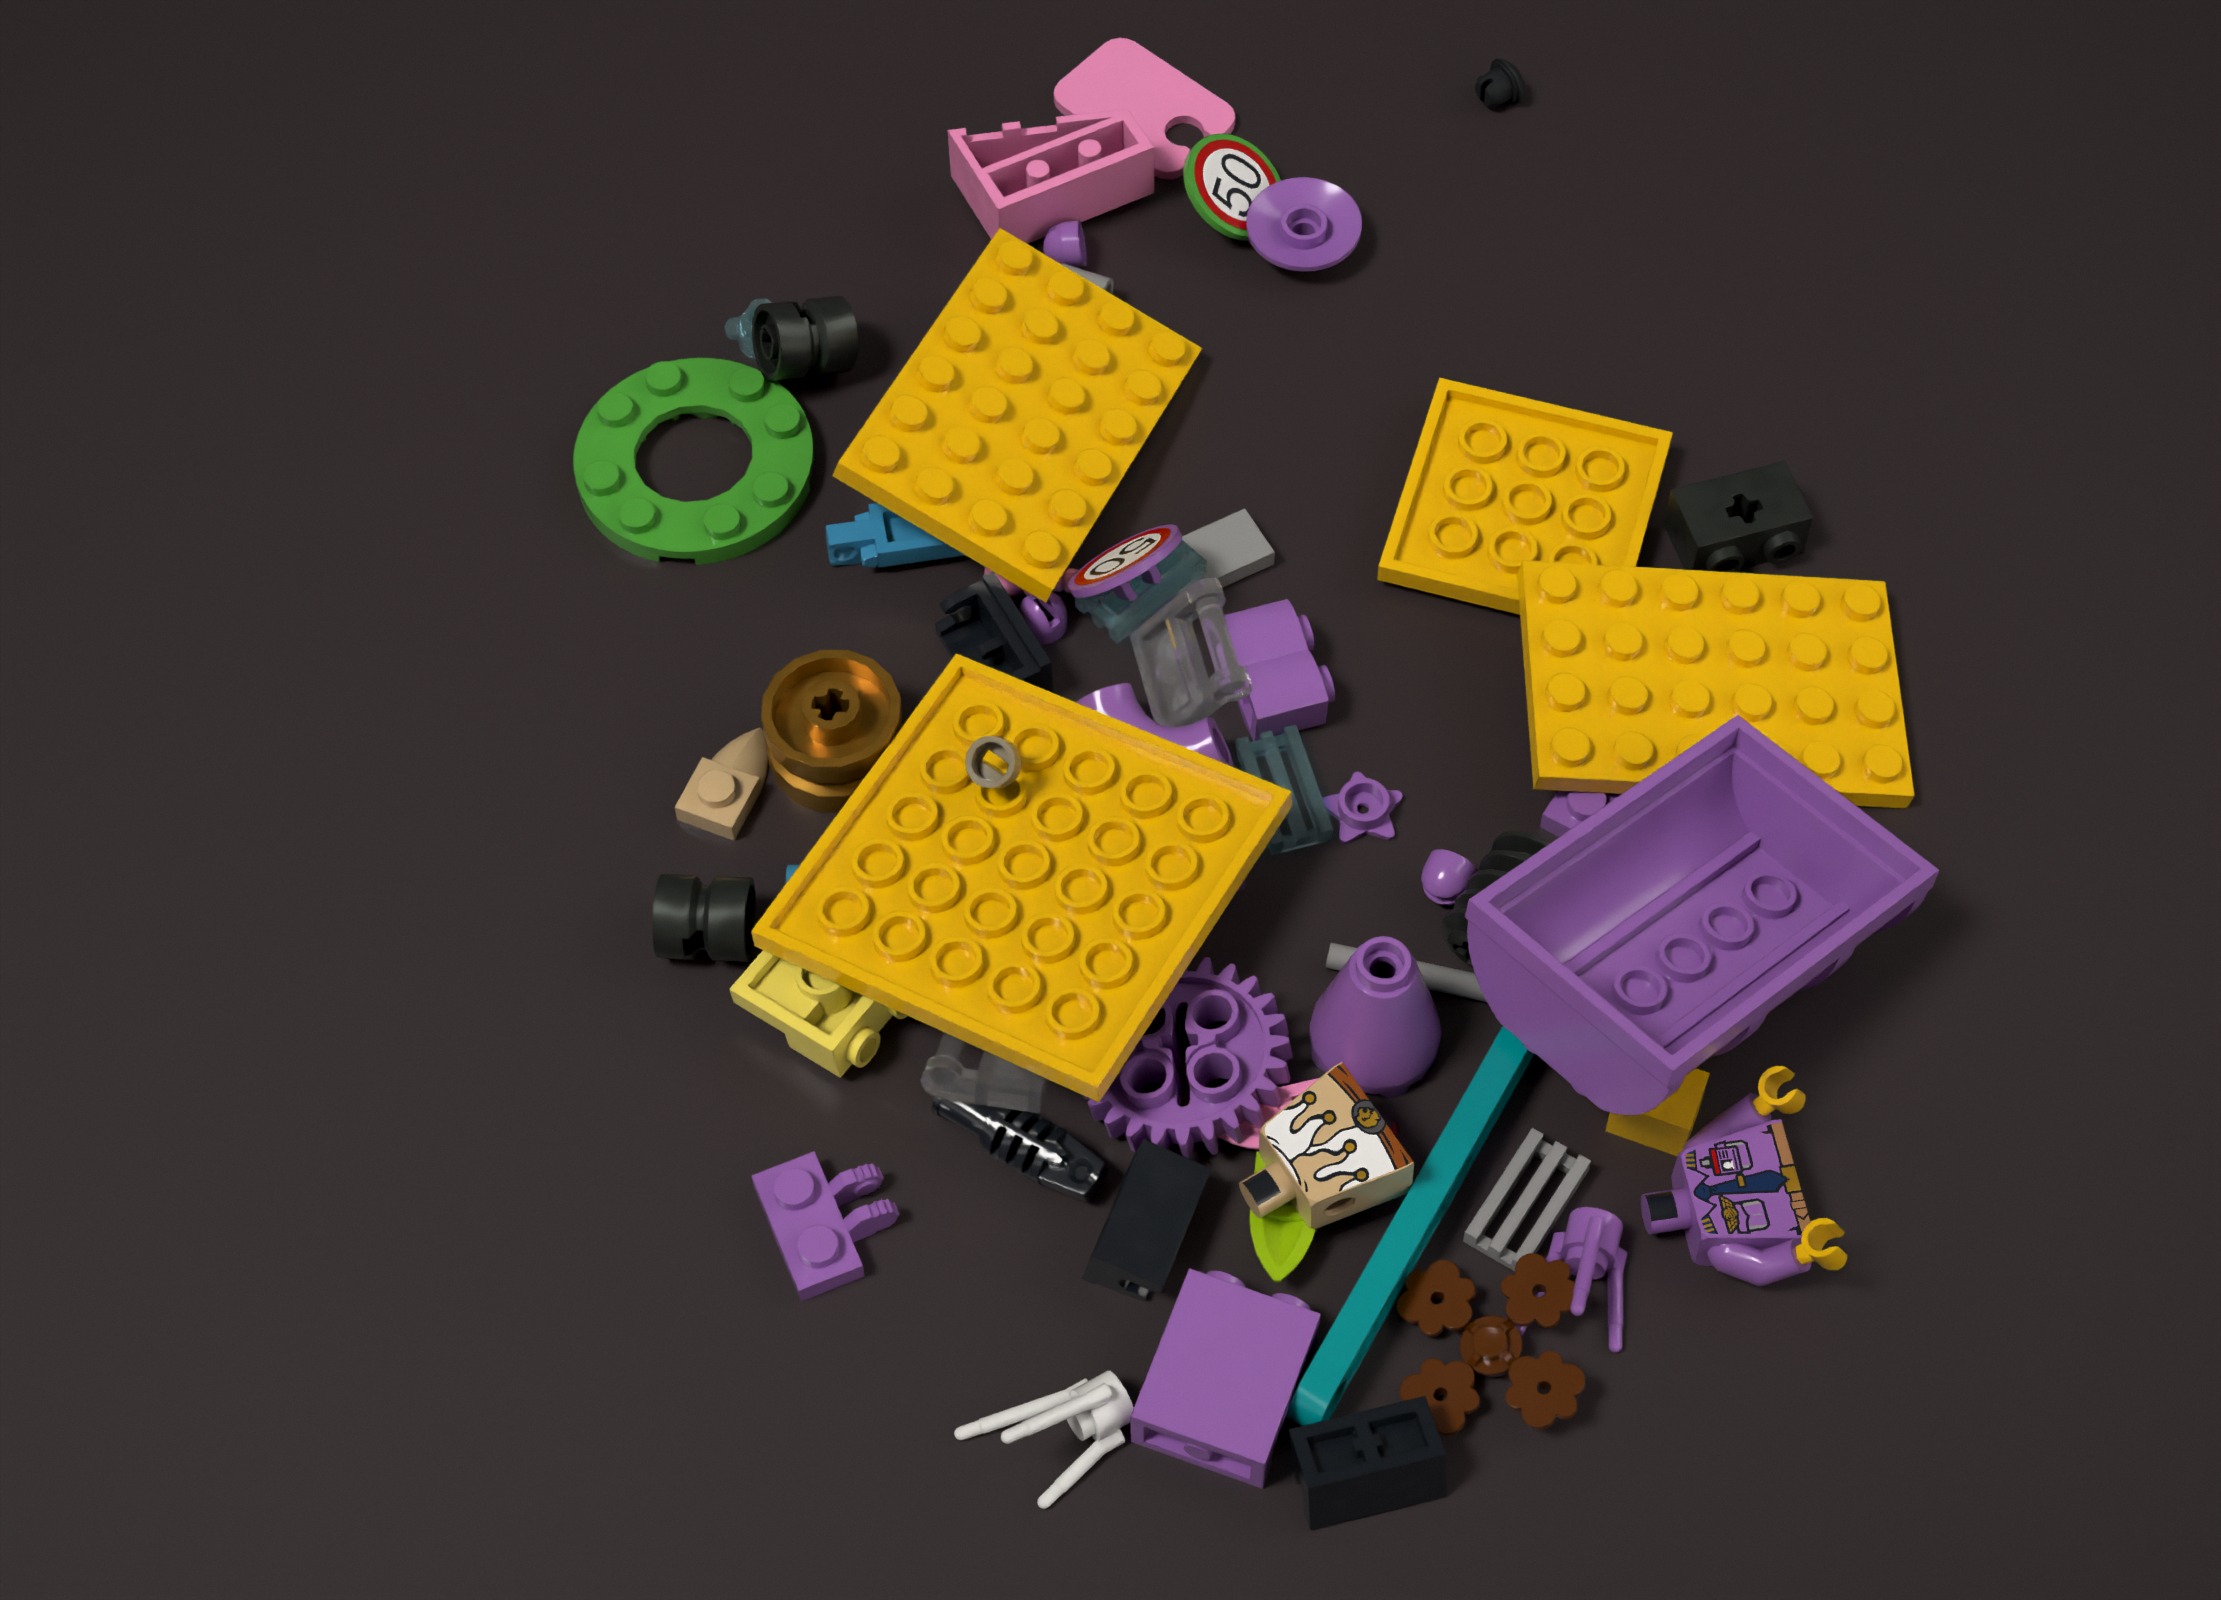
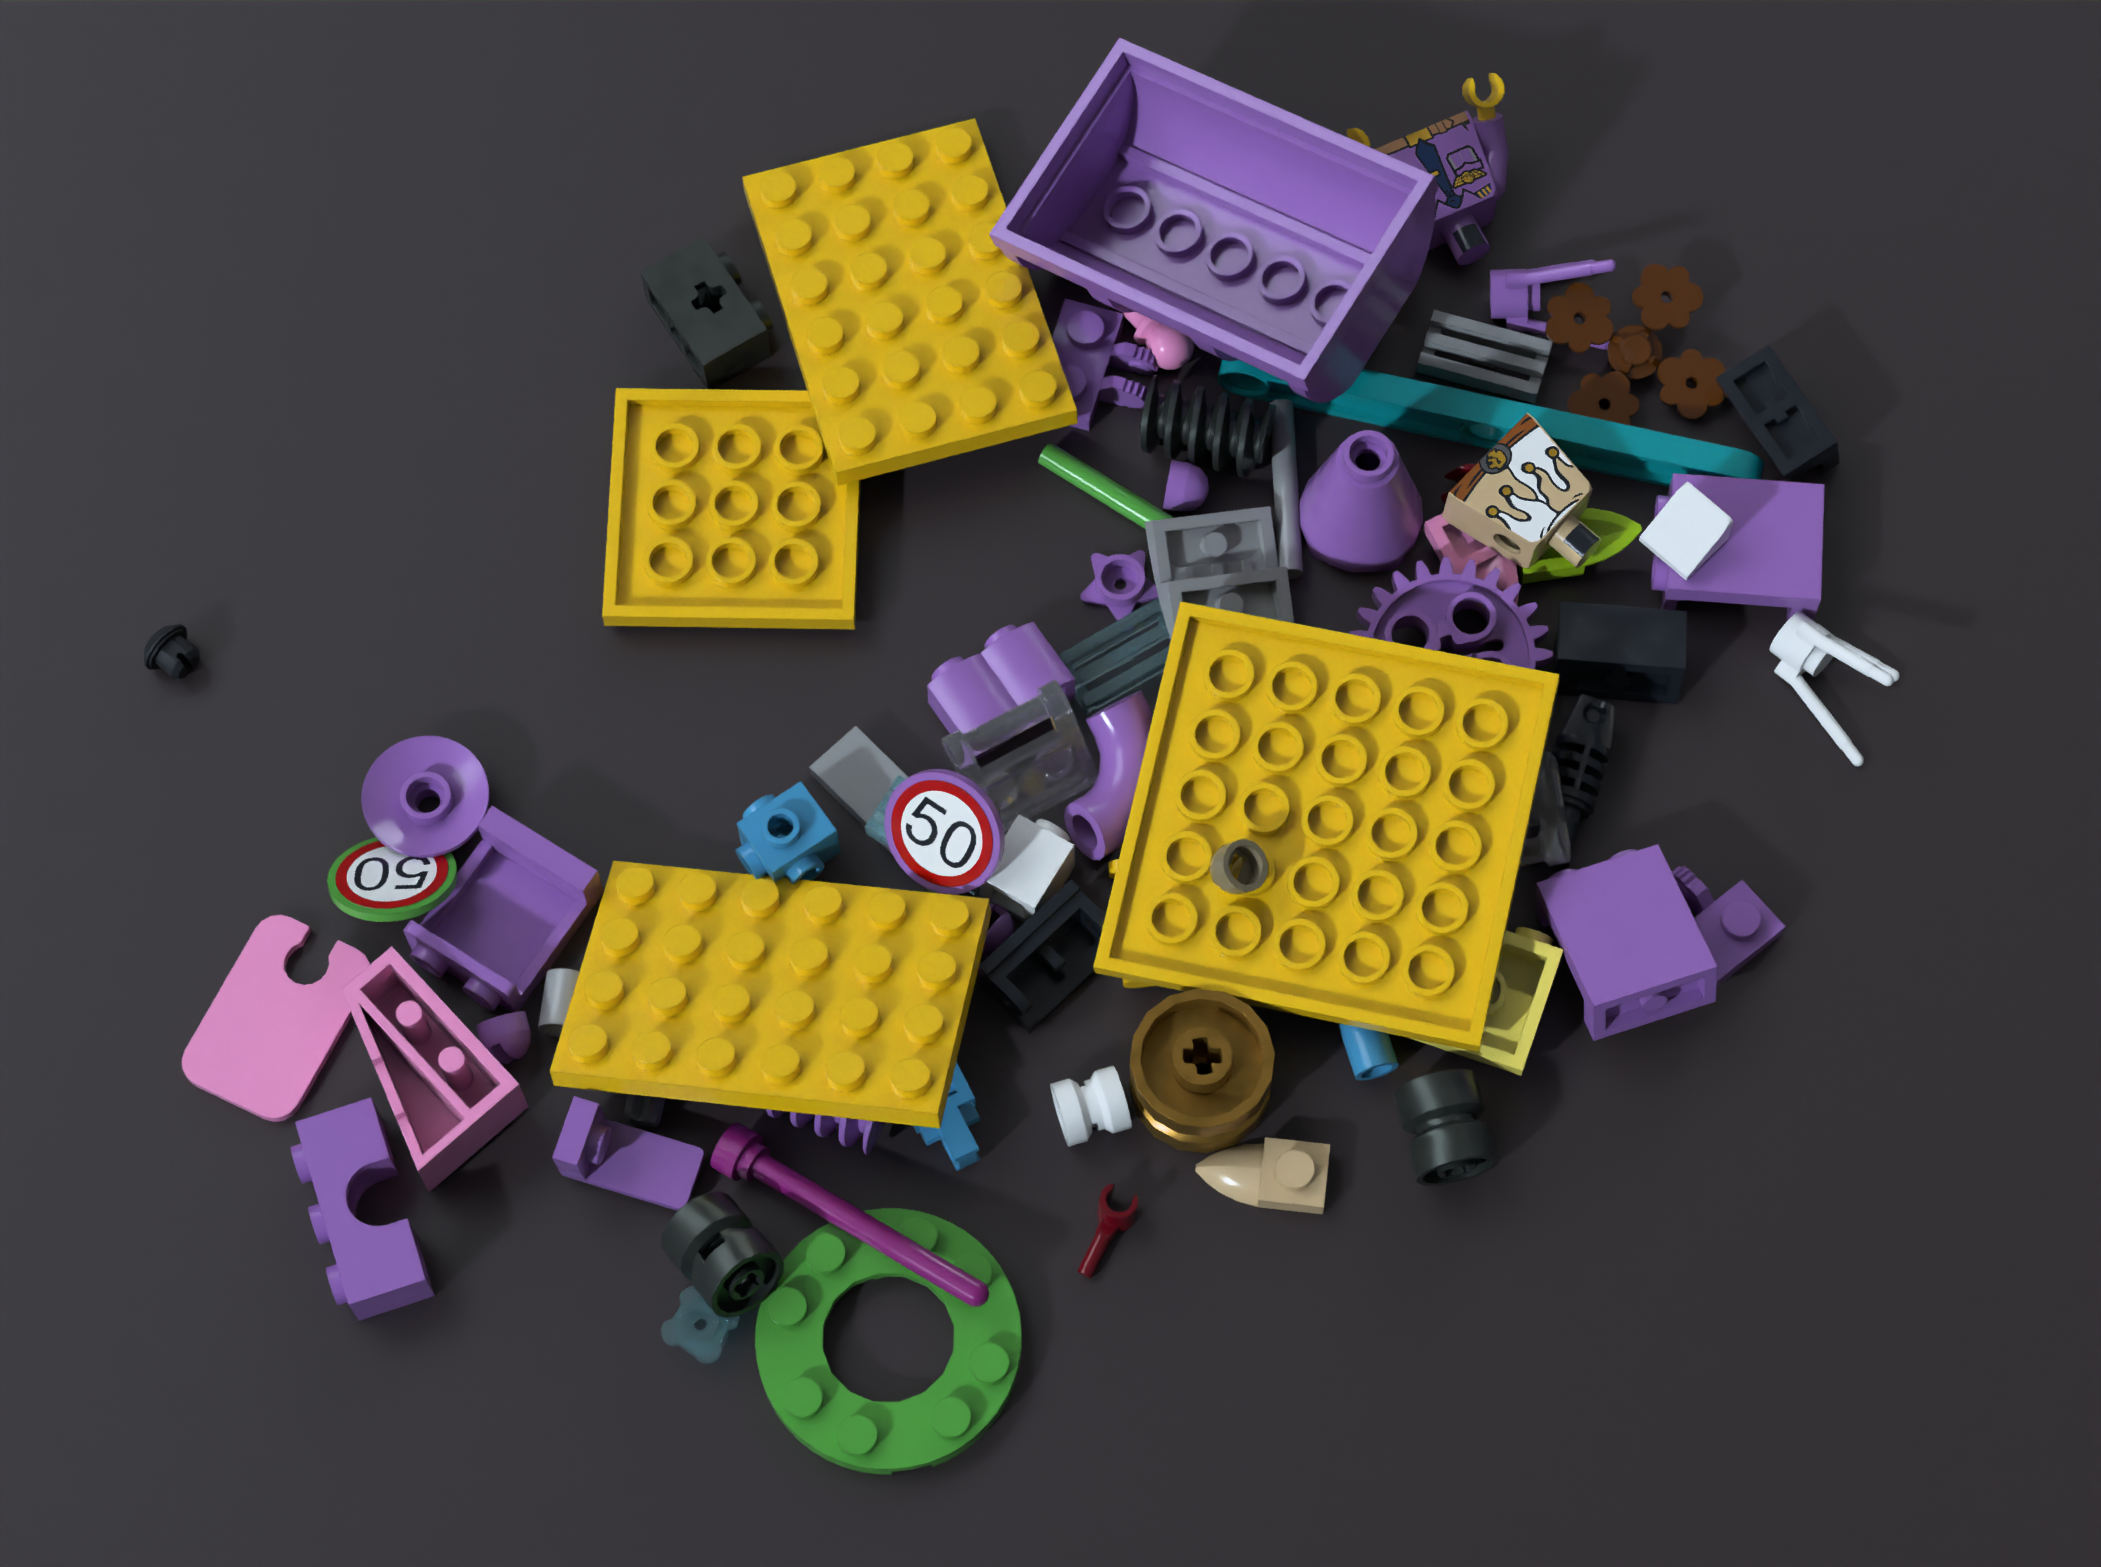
camera: 105 degrees left, 10 degrees up
(728, 641) = (1109, 1224): none -> dark red hand
(794, 442) = (743, 1155): none -> magenta piece
(828, 1116) = (1628, 940): none -> medium lavender panel
(840, 628) = (1096, 1104): none -> white wheel
(909, 112) = (343, 1157): none -> medium lavender arch
(941, 267) = (626, 1158): none -> medium lavender bracket
(1084, 647) = (1032, 867): none -> white brick
(1173, 466) = (786, 837): none -> dark azure brick
(1175, 262) = (507, 914): none -> medium lavender panel
(1241, 1295) = (1687, 531): none -> white slope
(1338, 880) = (1220, 564): none -> light grey slope
(1451, 828) = (1099, 486): none -> bright green bar

